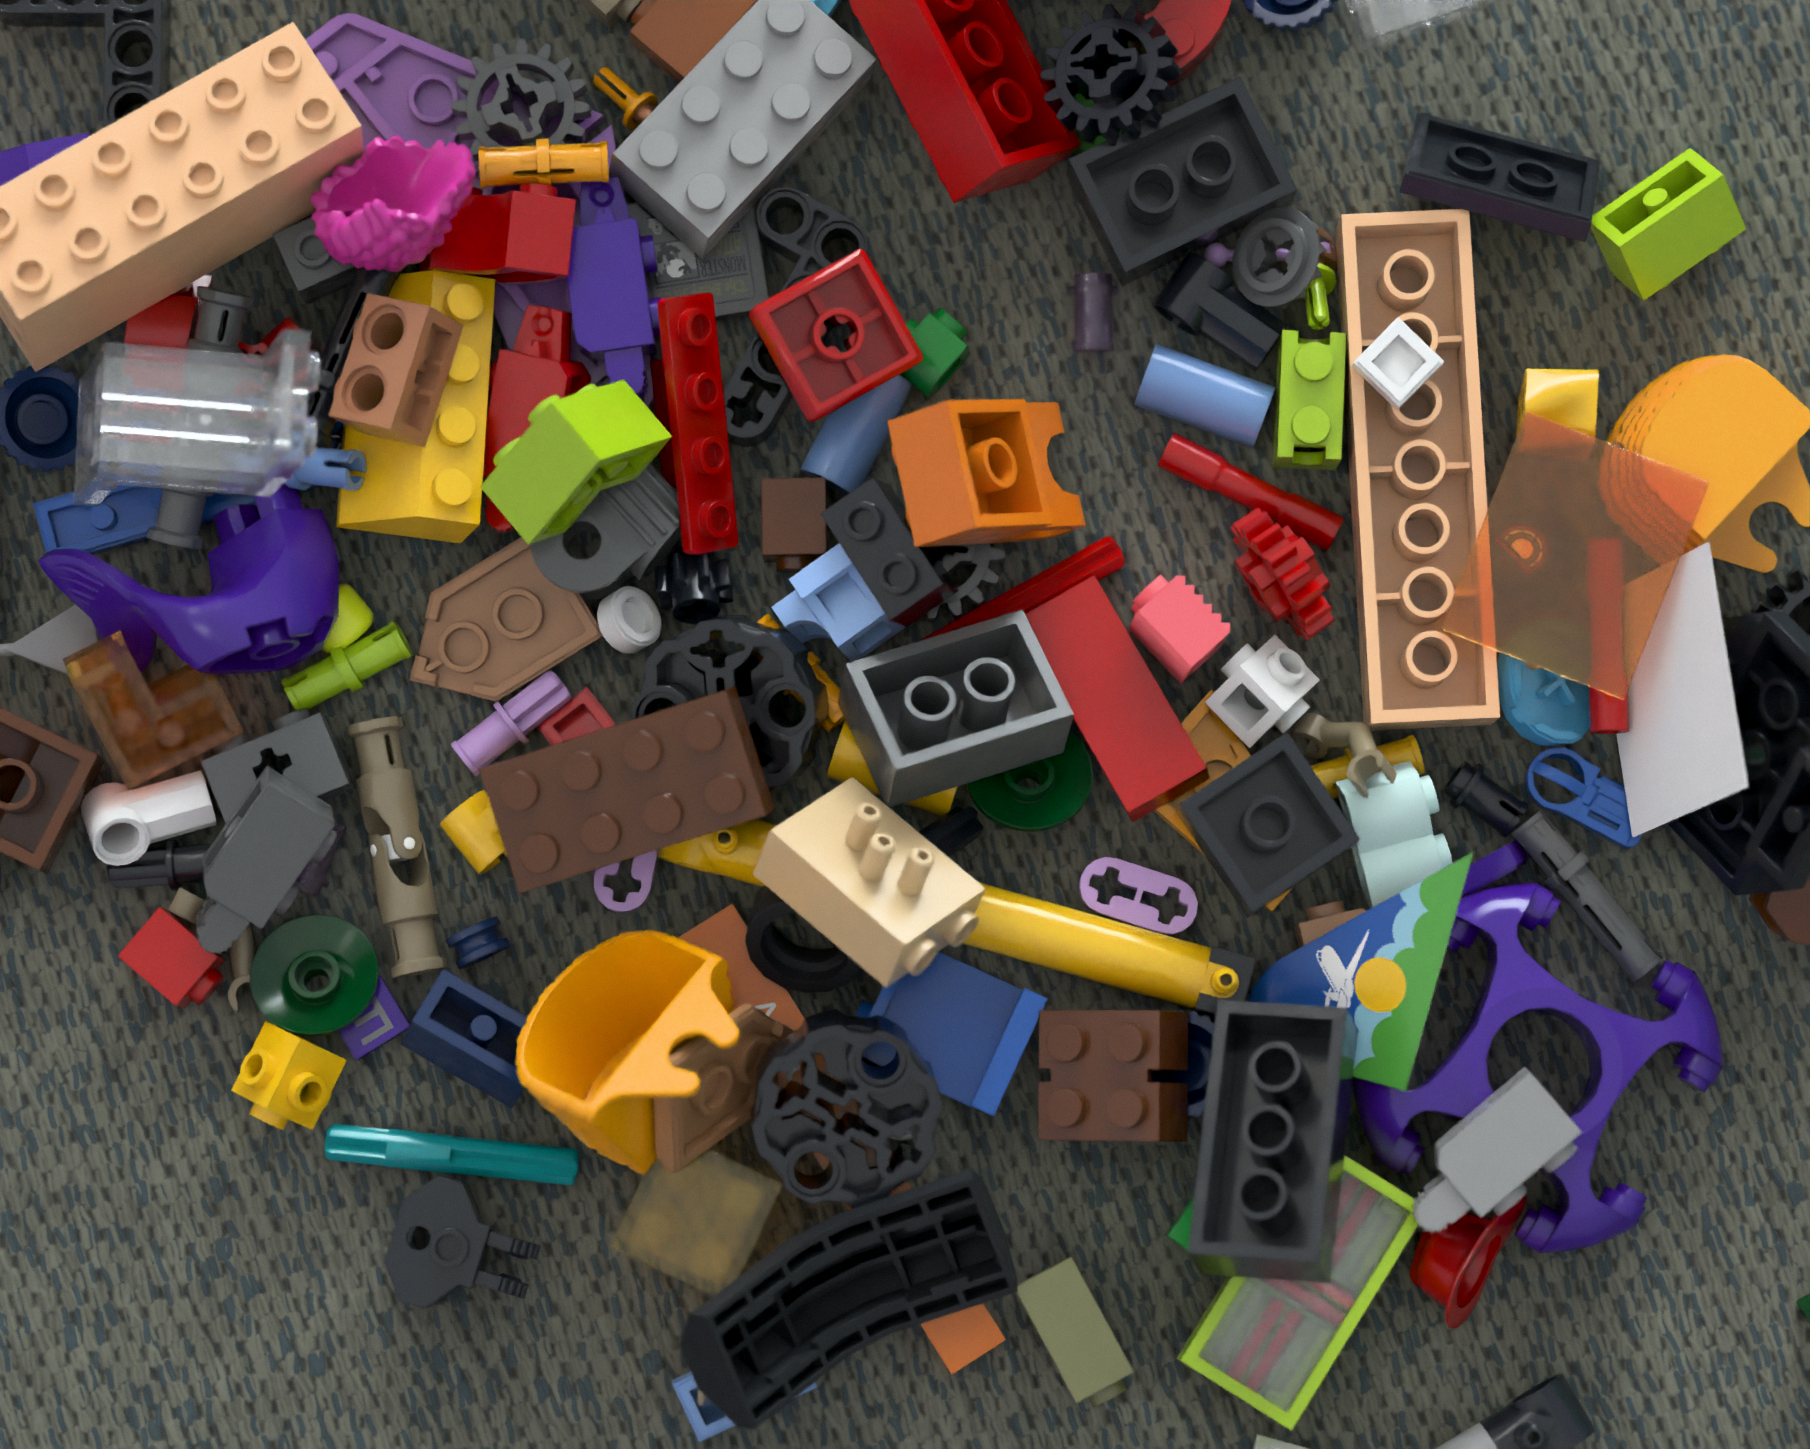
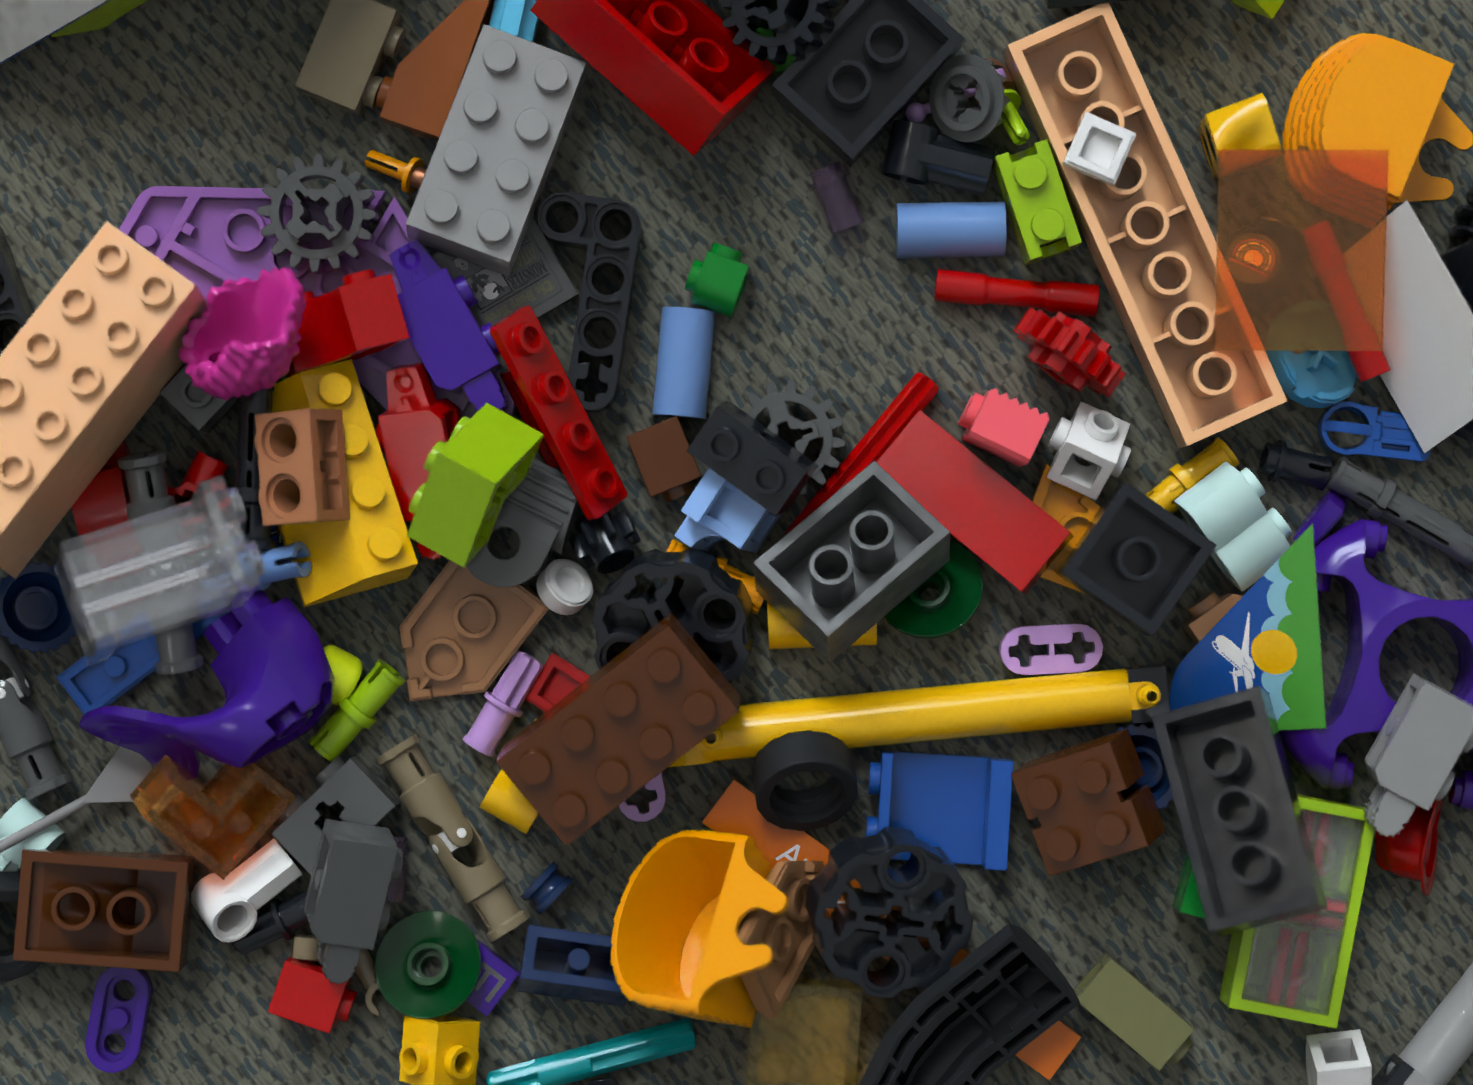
camera: 15 degrees left, 5 degrees up
(543, 164) = (353, 253): light orange pin -> none
(848, 295) = (677, 298): red brick -> none
(874, 879) = (844, 725): tan piece -> none
(981, 473) = (801, 367): orange brick -> none
(1356, 736) = (1195, 477): dark tan arm -> none

